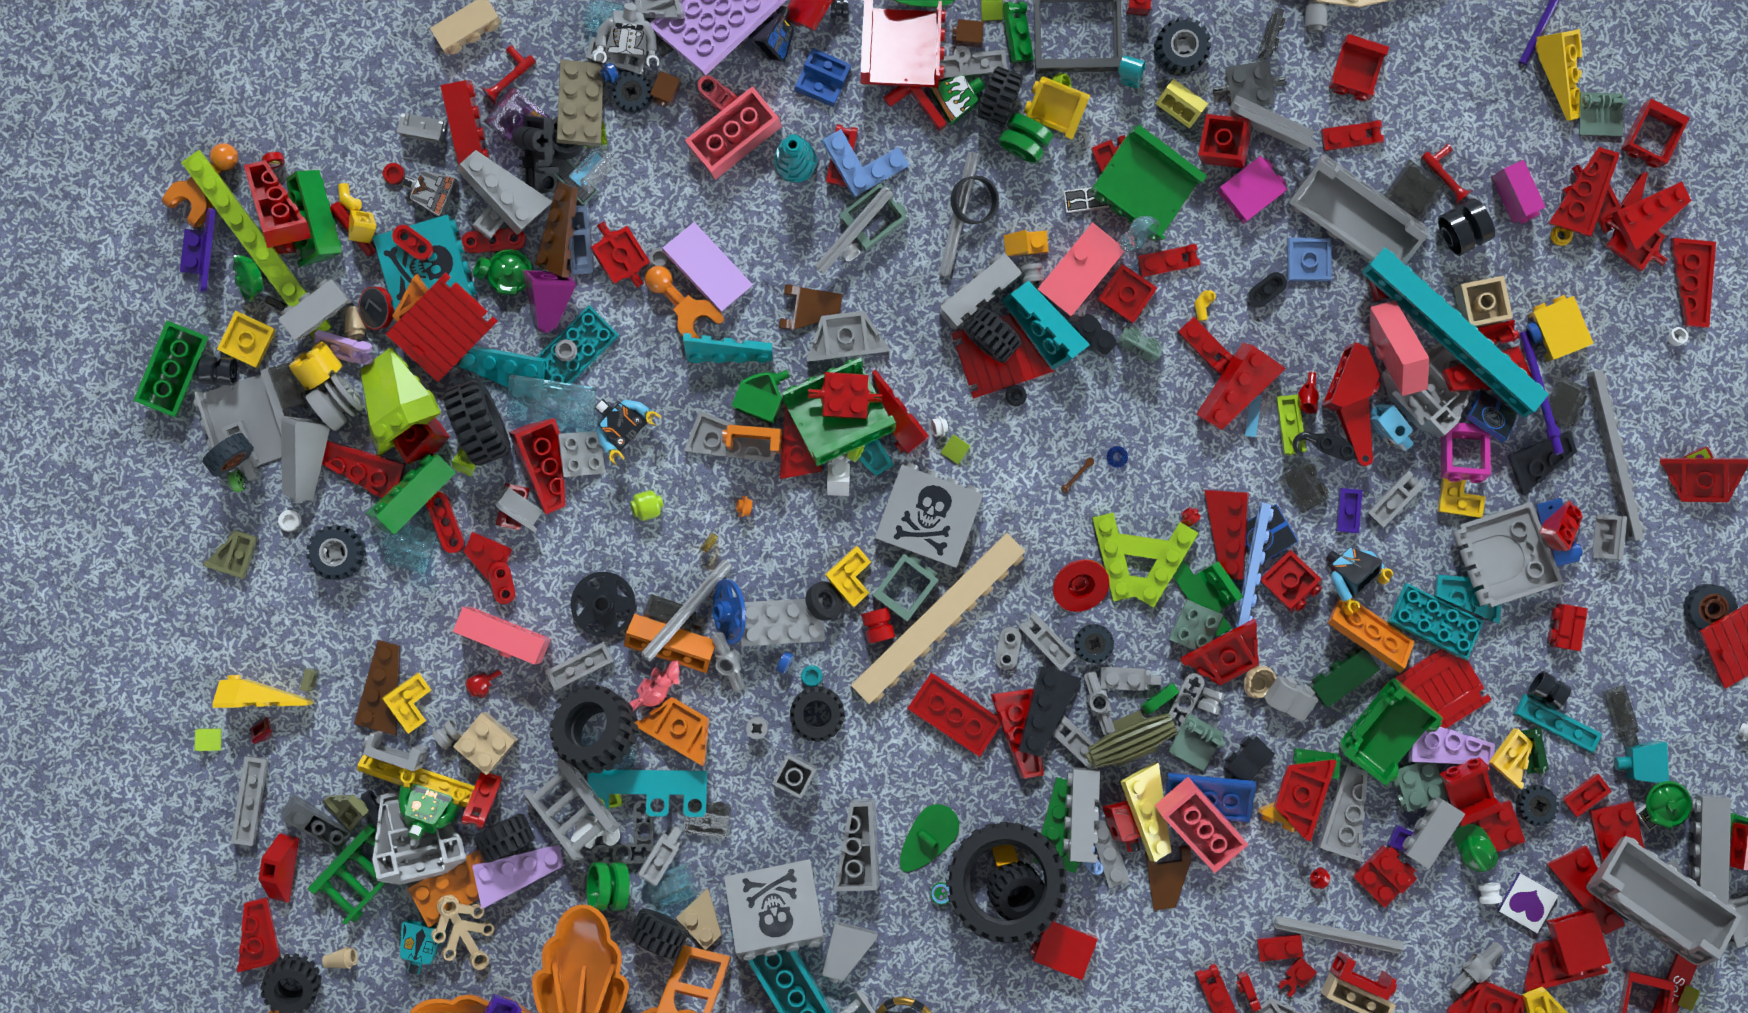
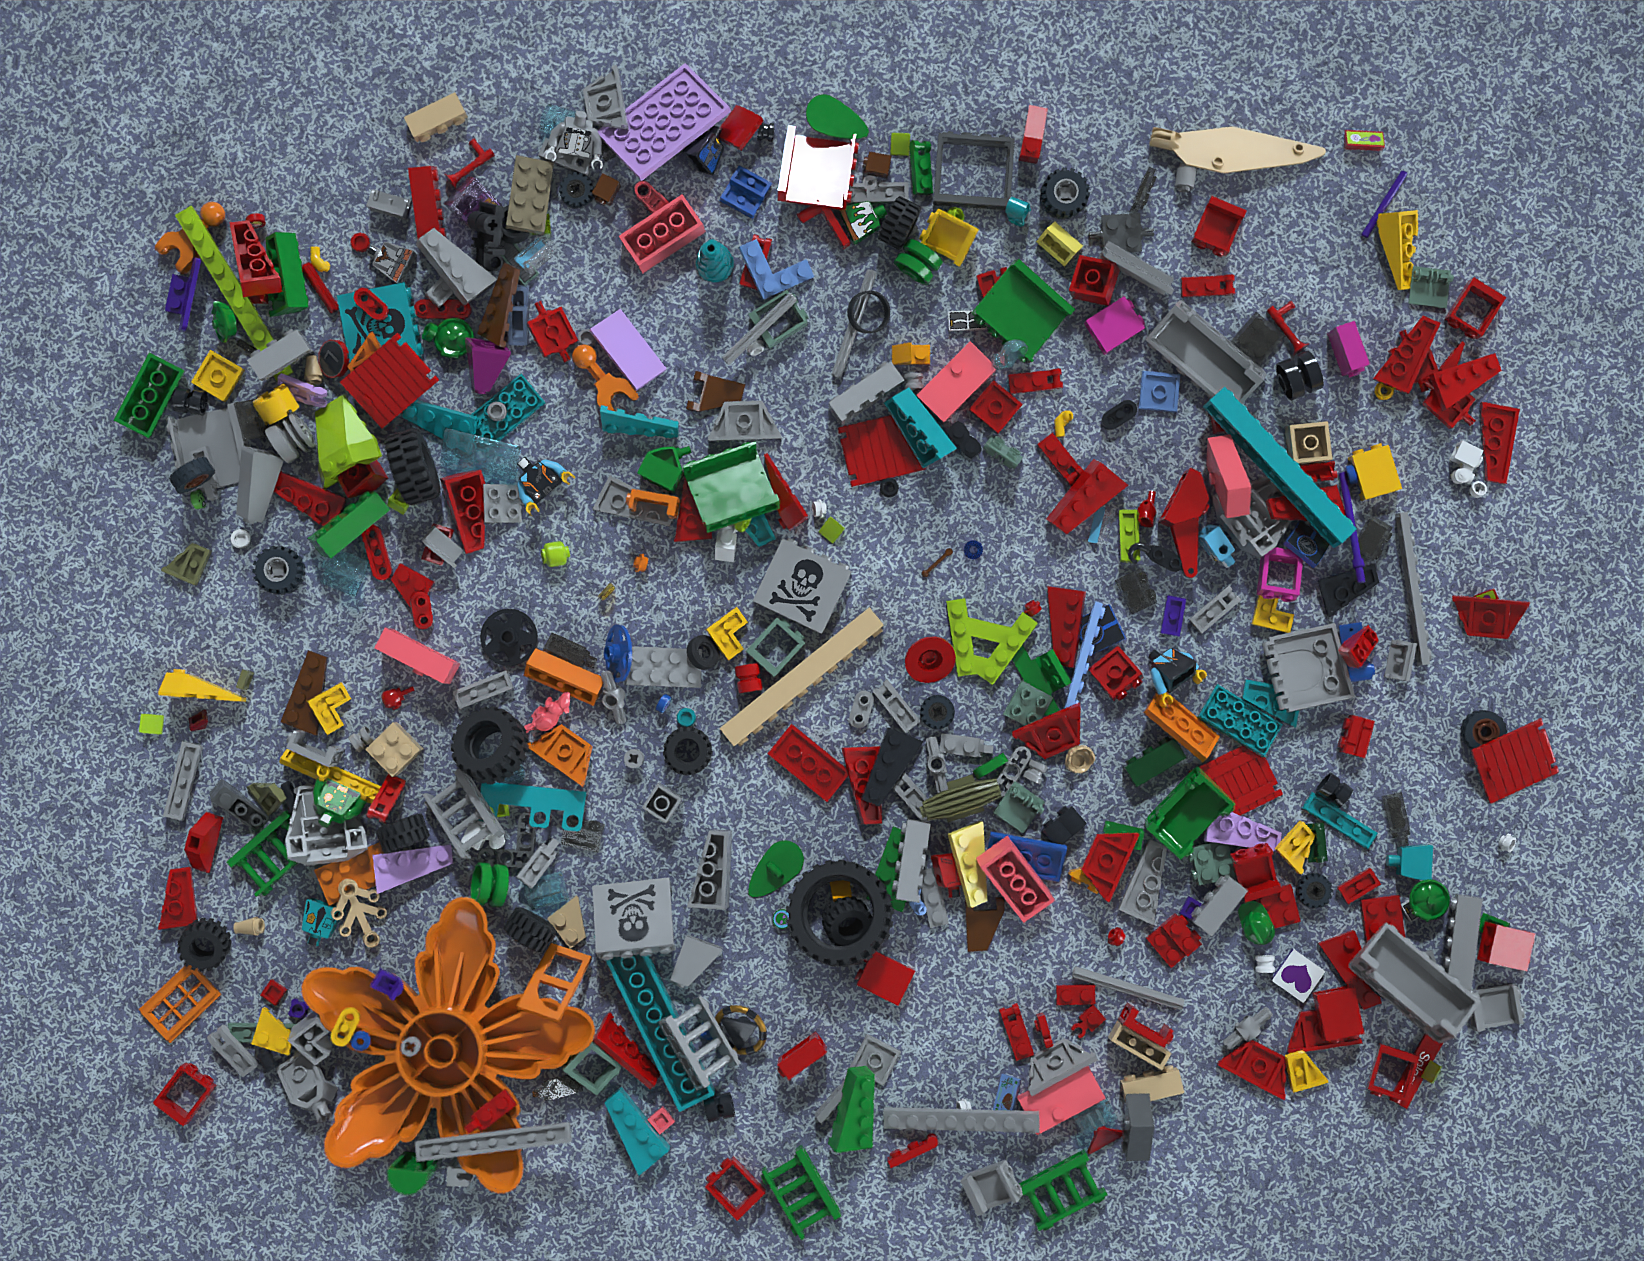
camera: 10 degrees right, 0 degrees up
(361, 226) = (327, 286): yellow slope -> none
(609, 72) = (557, 170): blue plate -> none
(686, 610) = (581, 649): light grey axle -> none
(845, 395) = (737, 473): red plate -> none
(992, 335) = (872, 432): black tyre -> none
(1291, 698) = (1105, 775): light grey brick -> none
(1663, 302) = (1468, 458): none -> white brick

